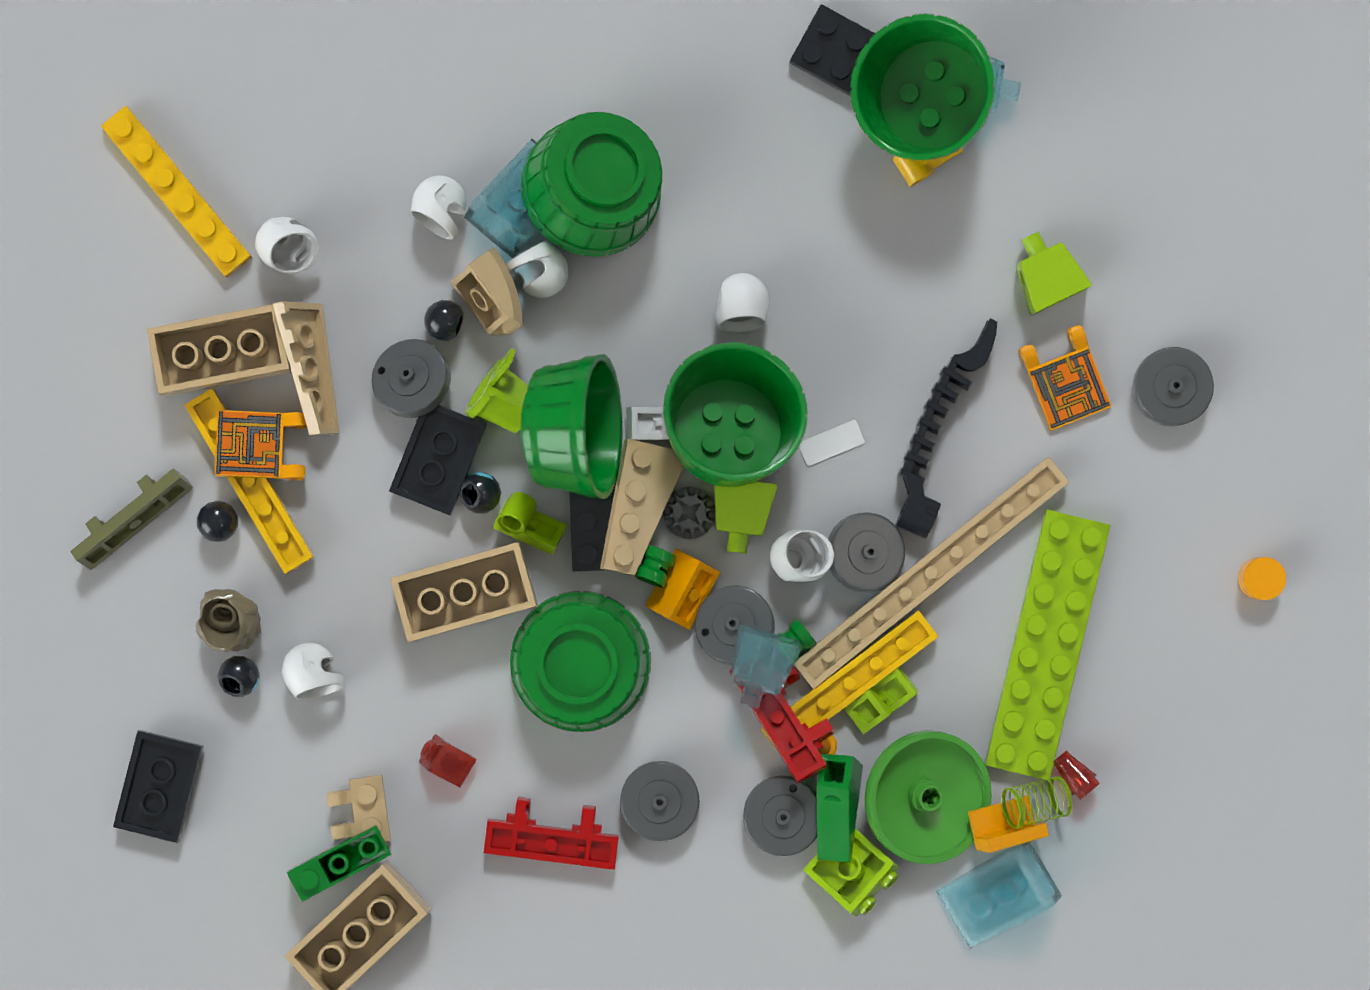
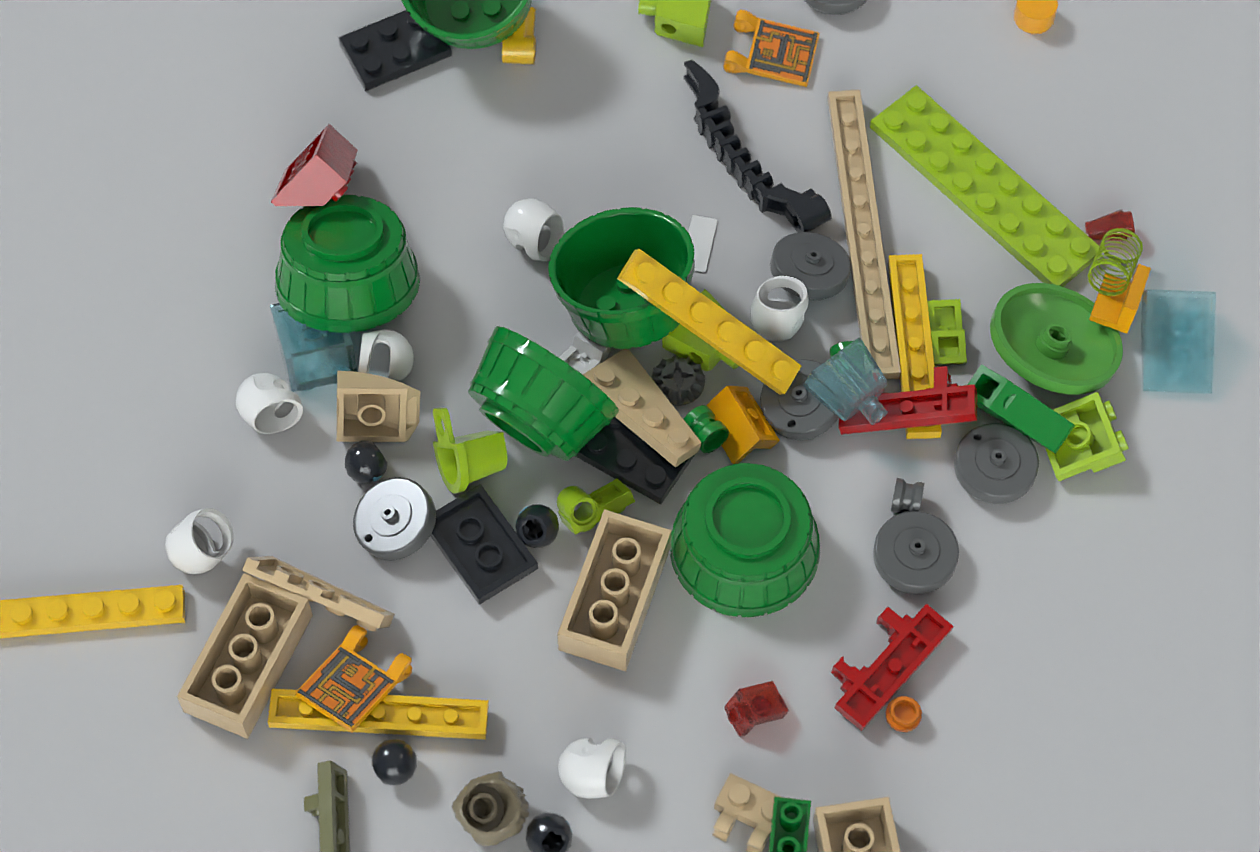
camera: 55 degrees left, 25 degrees down
(519, 874) = (903, 714): none -> orange plate
(657, 97) = (318, 172): none -> slope
(704, 764) = (907, 496): none -> dark grey wheel
(725, 520) = (709, 321): none -> yellow plate

